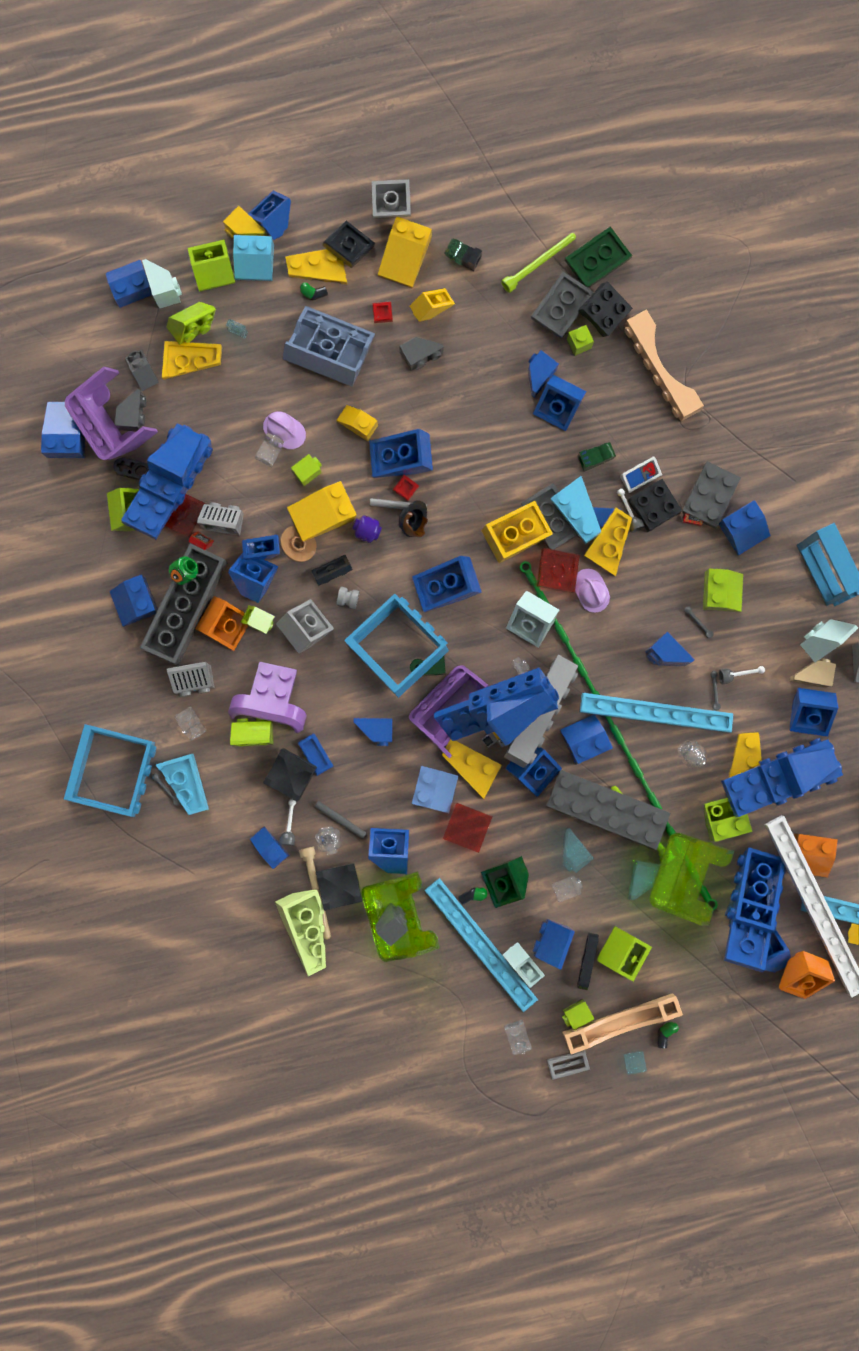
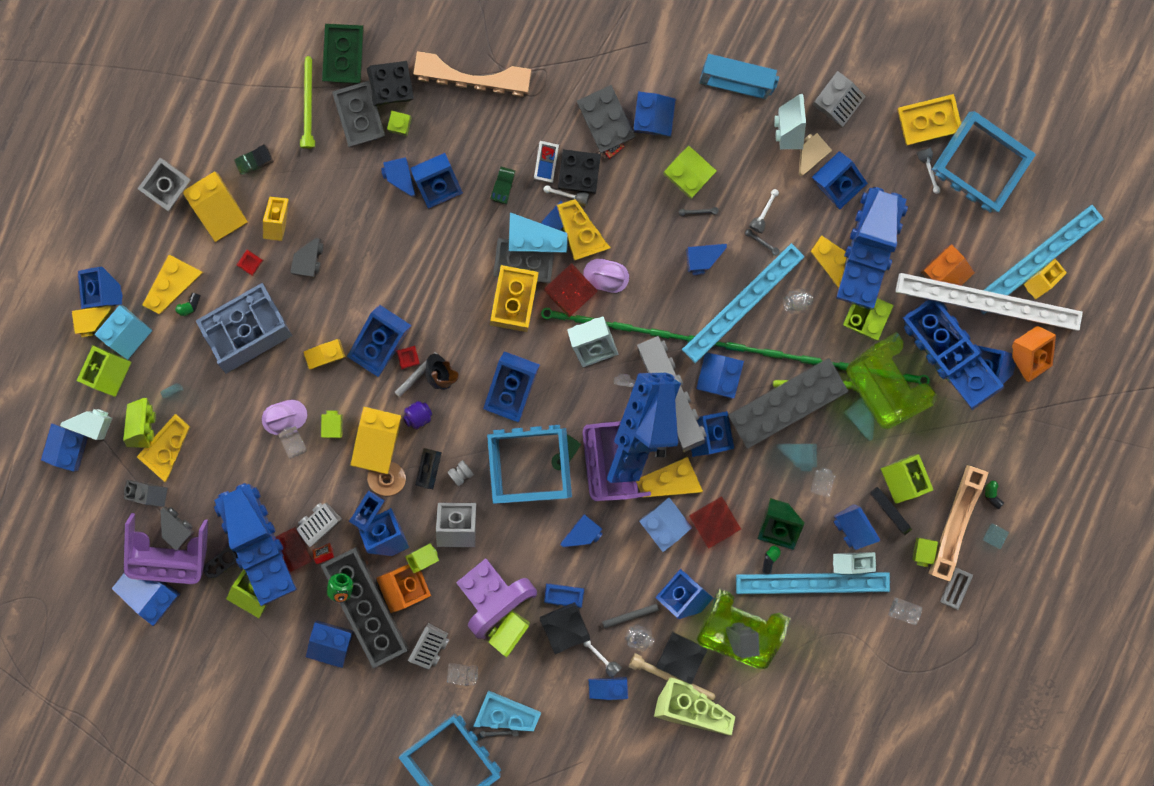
camera: 50 degrees left, 5 degrees up
(348, 244) = (172, 246): black tile -> none

